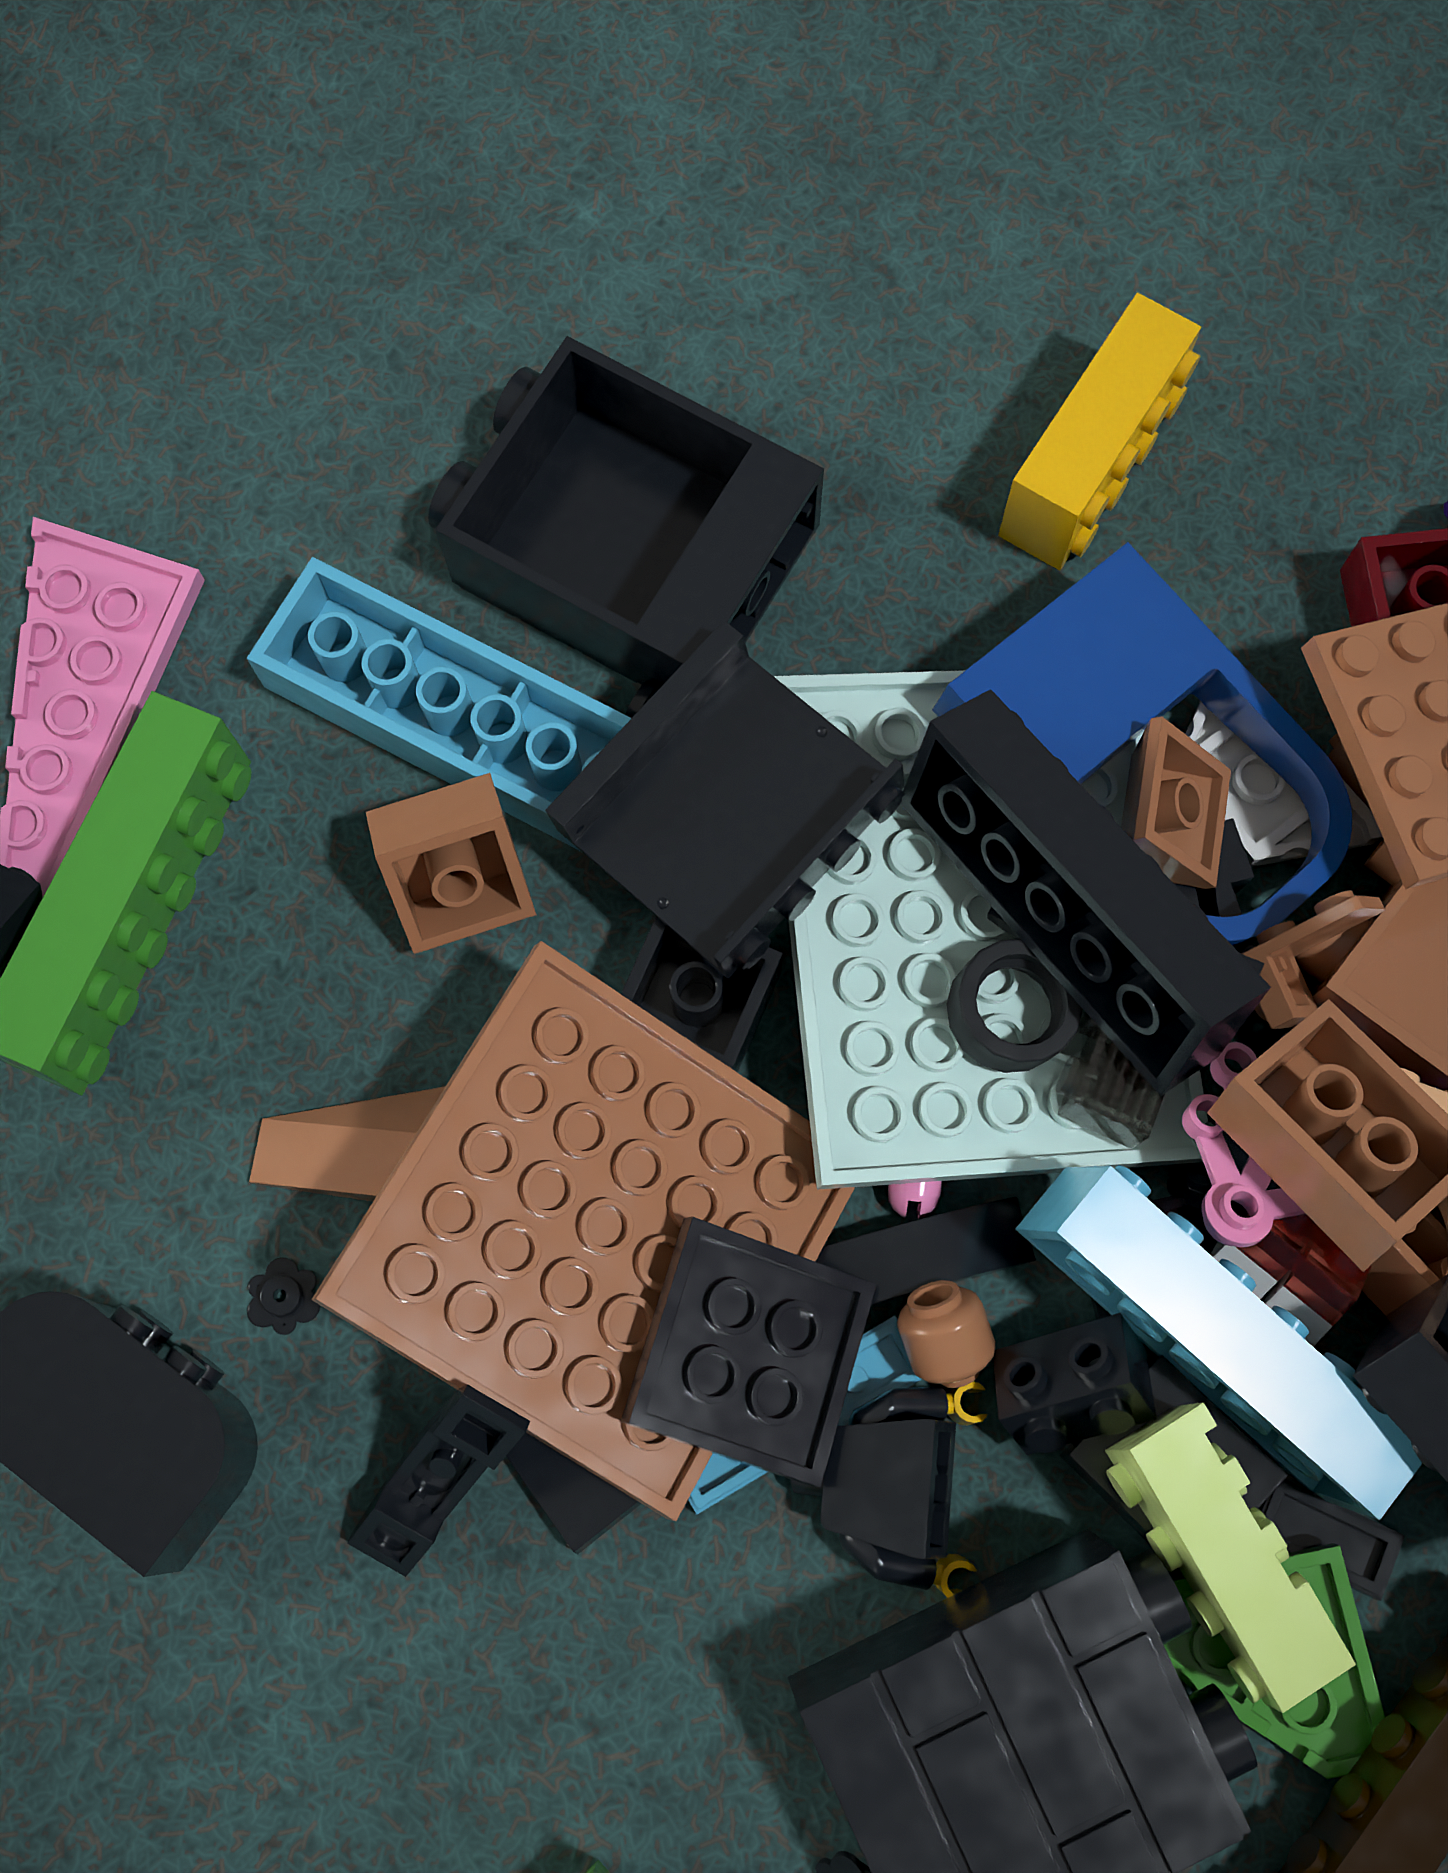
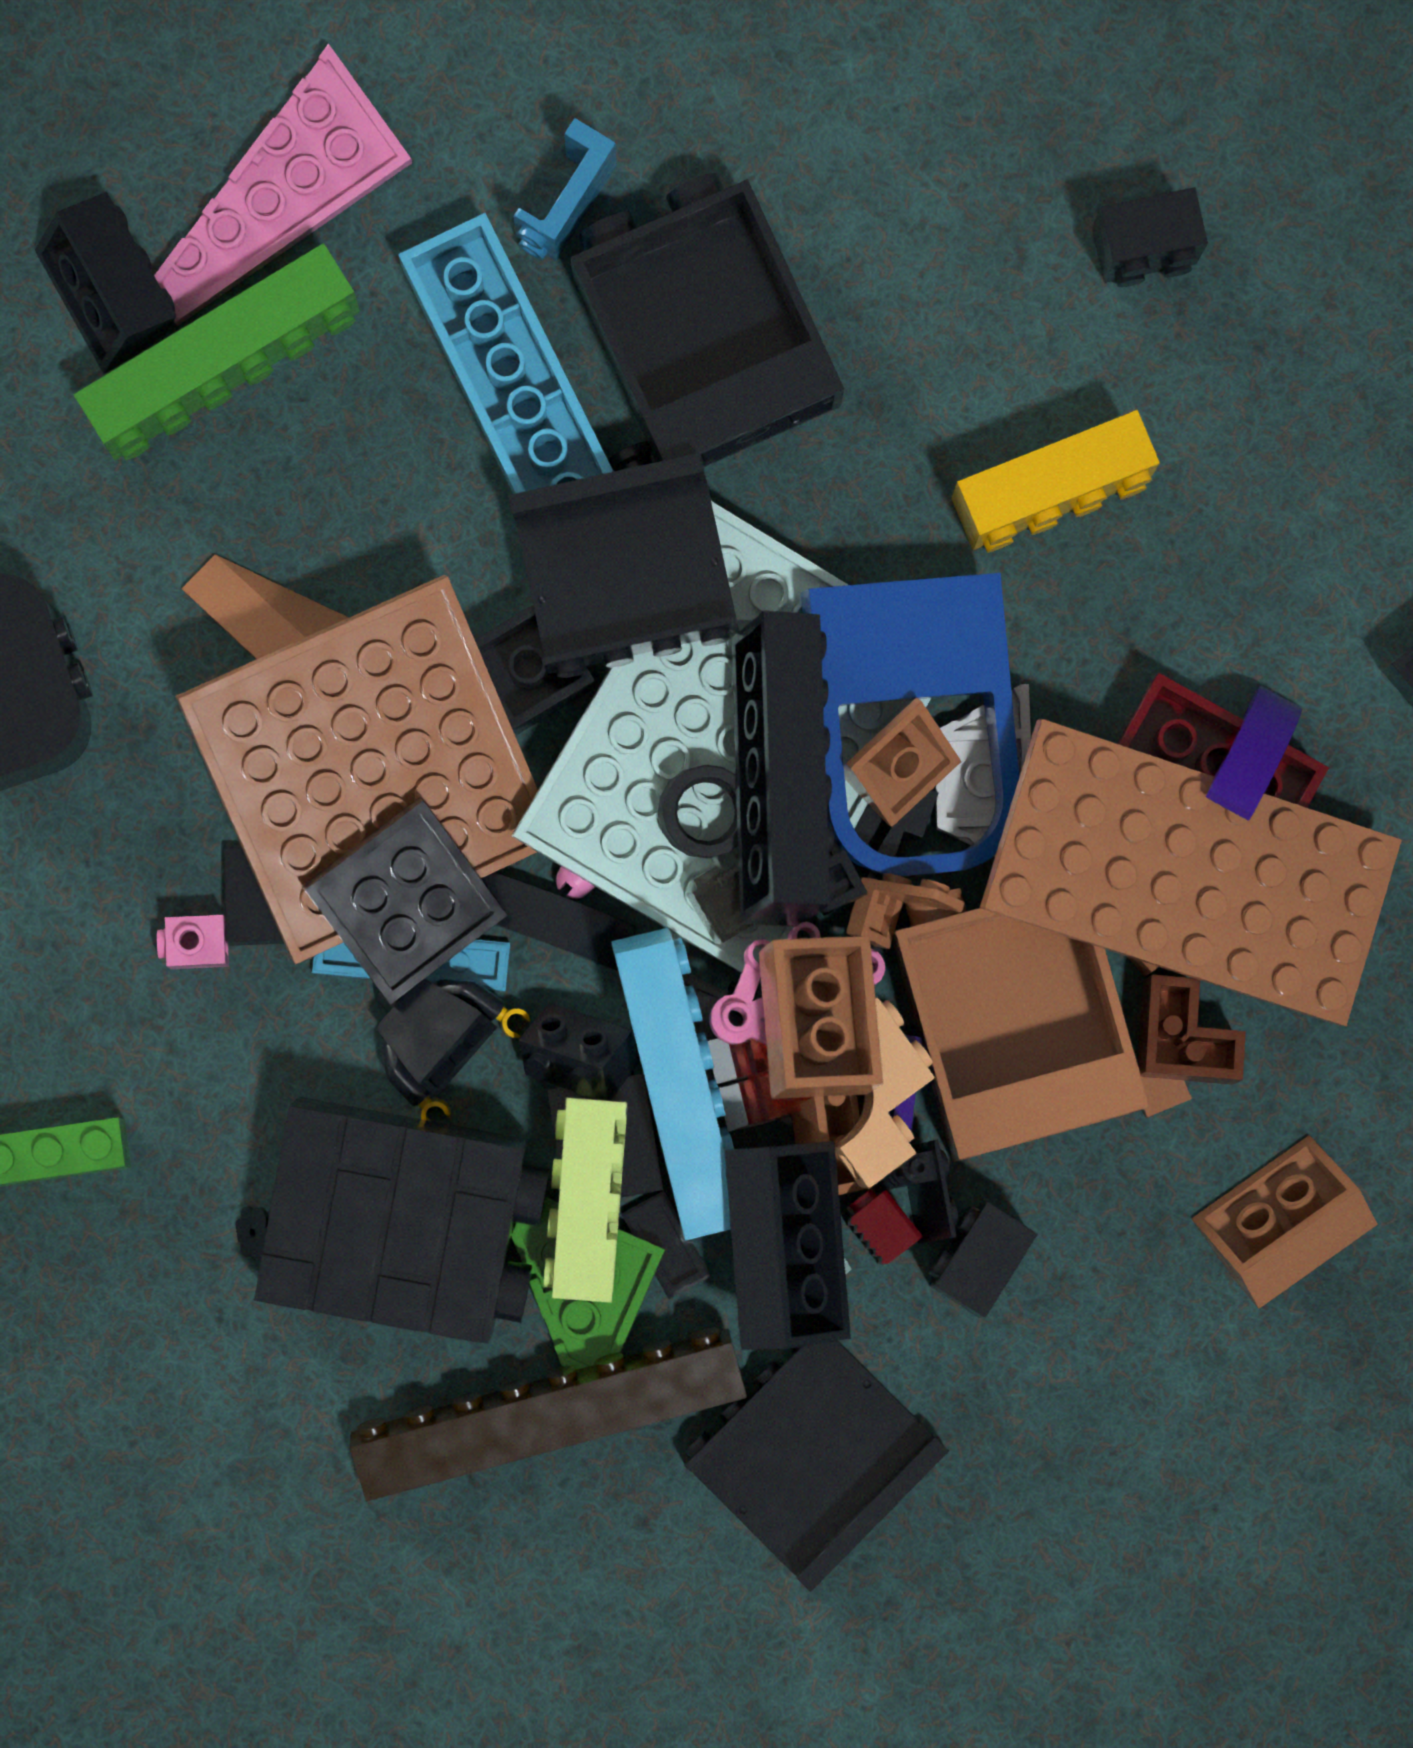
camera: 25 degrees right, 10 degrees up
(298, 1306) = (164, 684): black plant -> none
(385, 443) = (596, 163): none -> dark azure panel
(434, 1477) = (175, 843): black slope -> none
(450, 863) = (435, 479): nougat brick -> none
(534, 1580) = (193, 942): none -> bright pink brick
(946, 1334) = (528, 972): nougat head -> none
(1005, 152) = (1149, 237): none -> black brick

